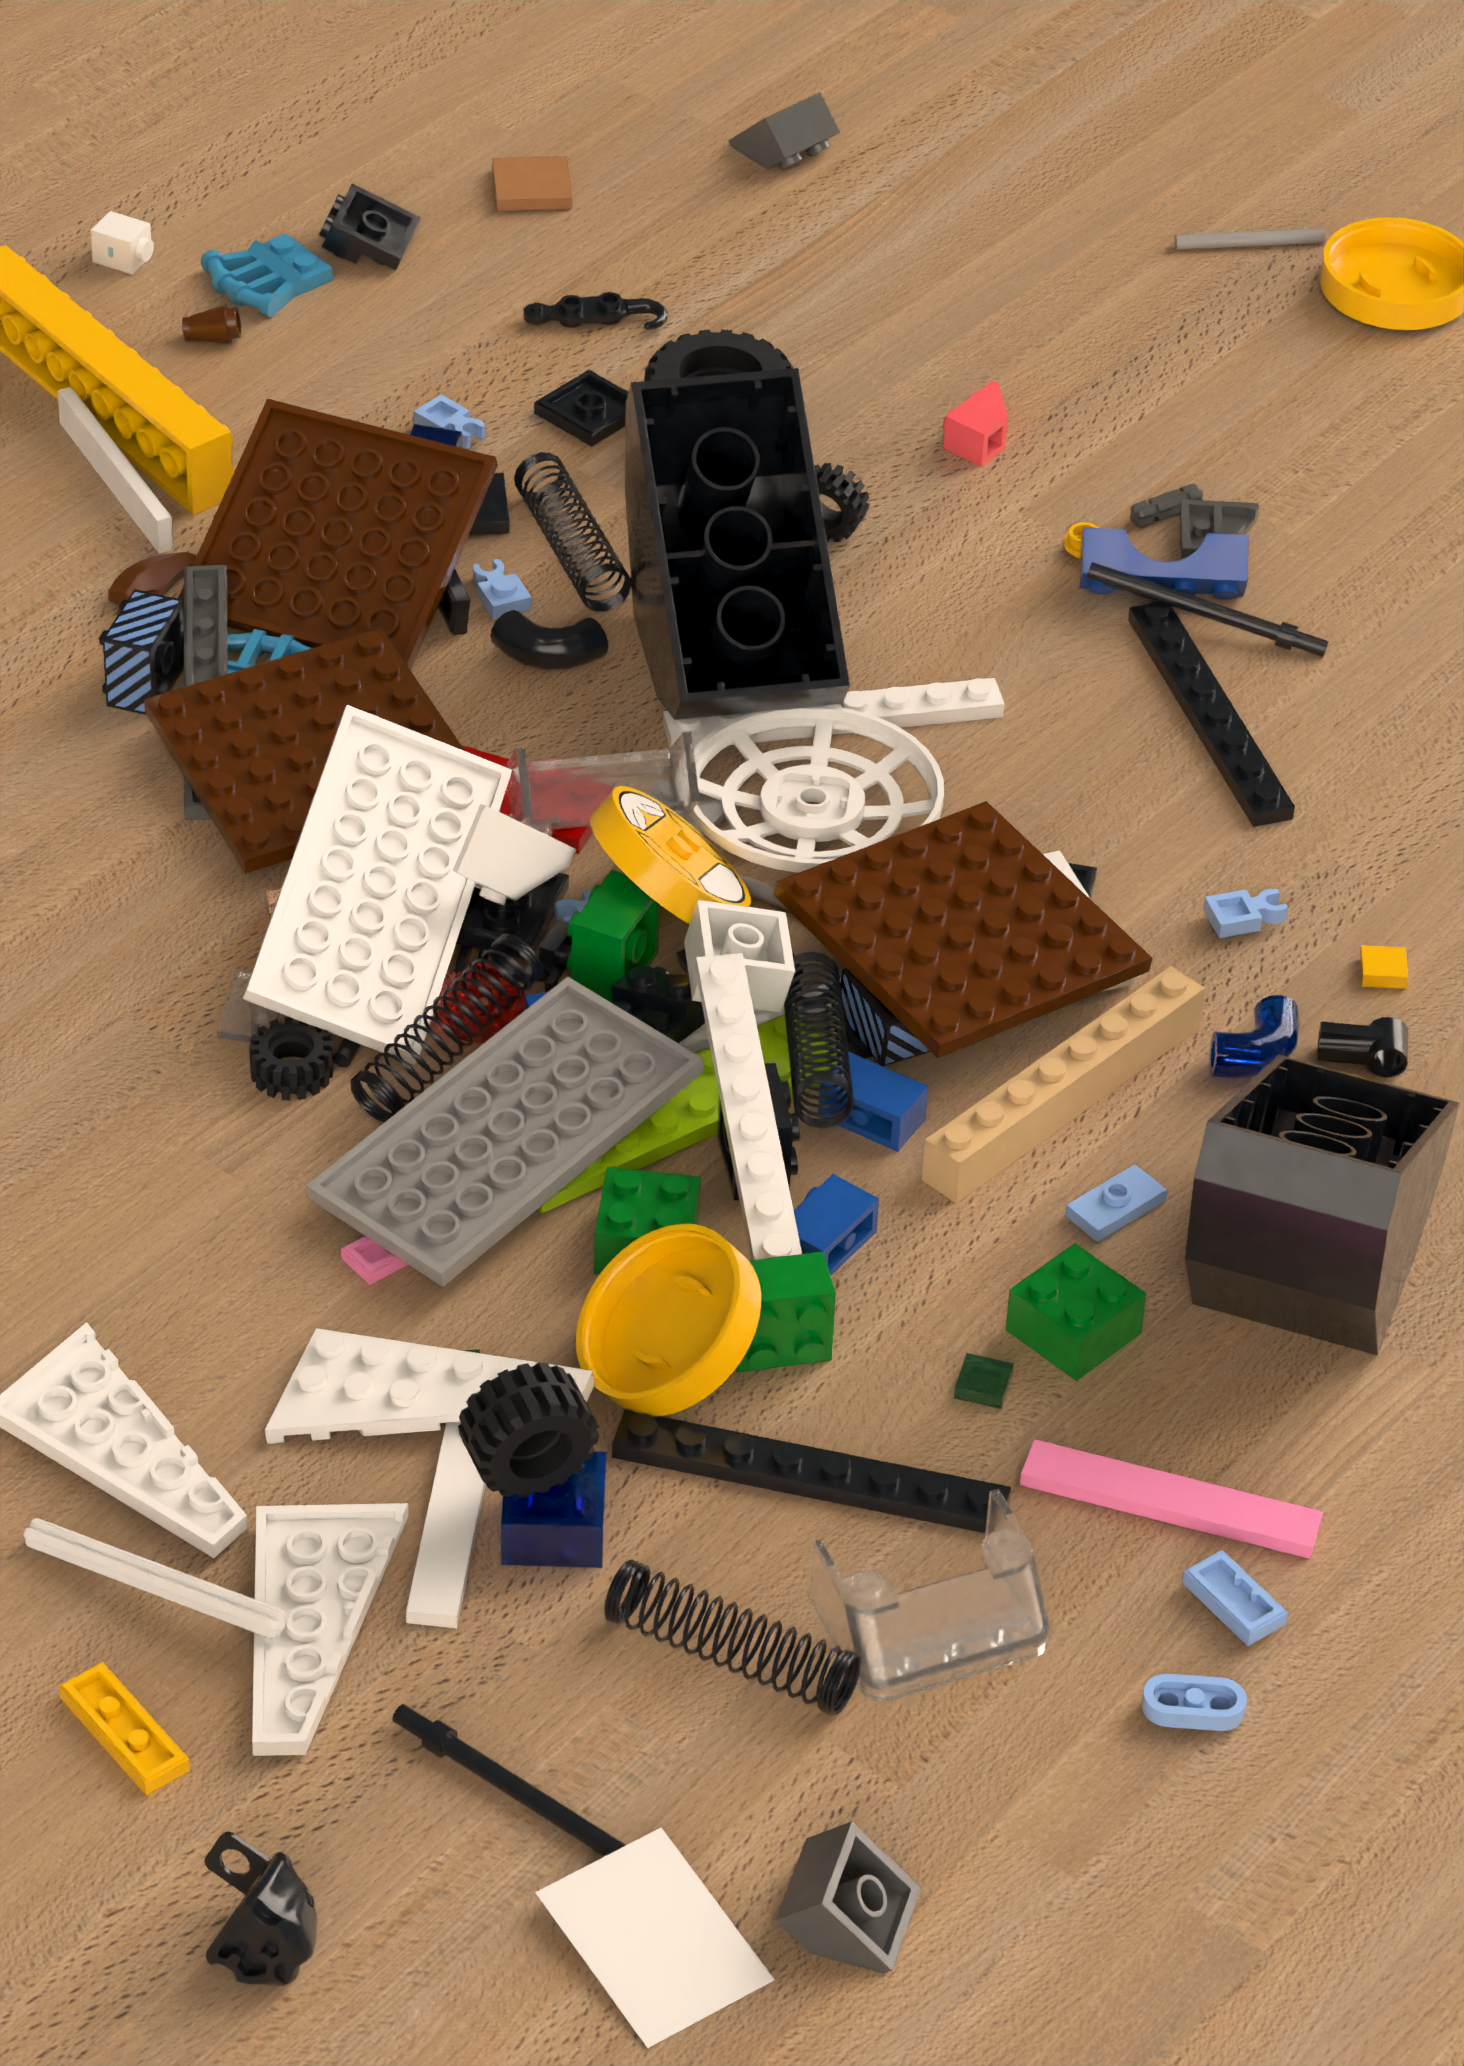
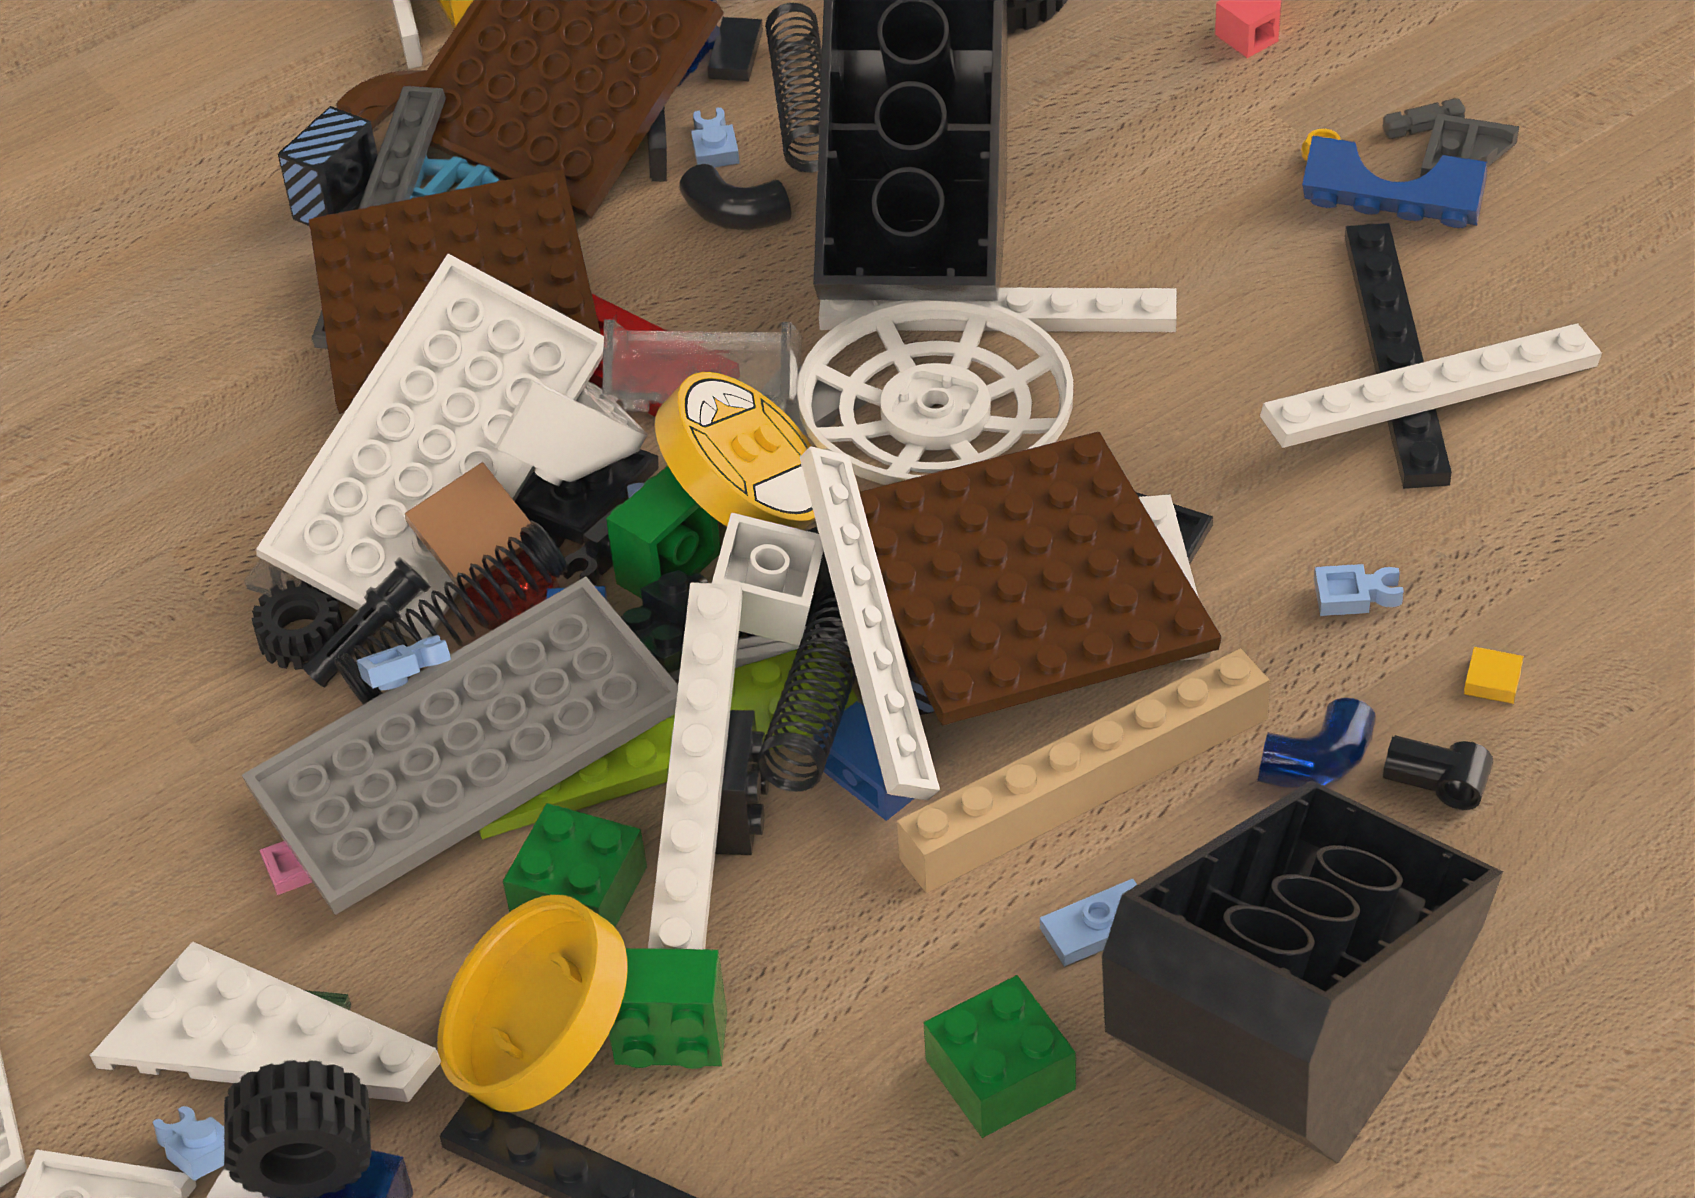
camera: 20 degrees right, 5 degrees up
(381, 1023) = (380, 607): none -> black pin
(402, 1482) = (192, 1144): none -> light blue plate
(421, 1071) = (393, 666): none -> light blue plate
(434, 947) = (468, 522): none -> medium nougat tile
(836, 1220) = (766, 907): blue brick -> none
(848, 497) = (1066, 82): black tyre -> none
(849, 979) = (869, 625): none -> white plate
(983, 1380) = (874, 1123): clear green tile -> none
(1255, 734) = (1429, 385): none -> white plate
(1284, 634) = (1503, 274): black bar -> none

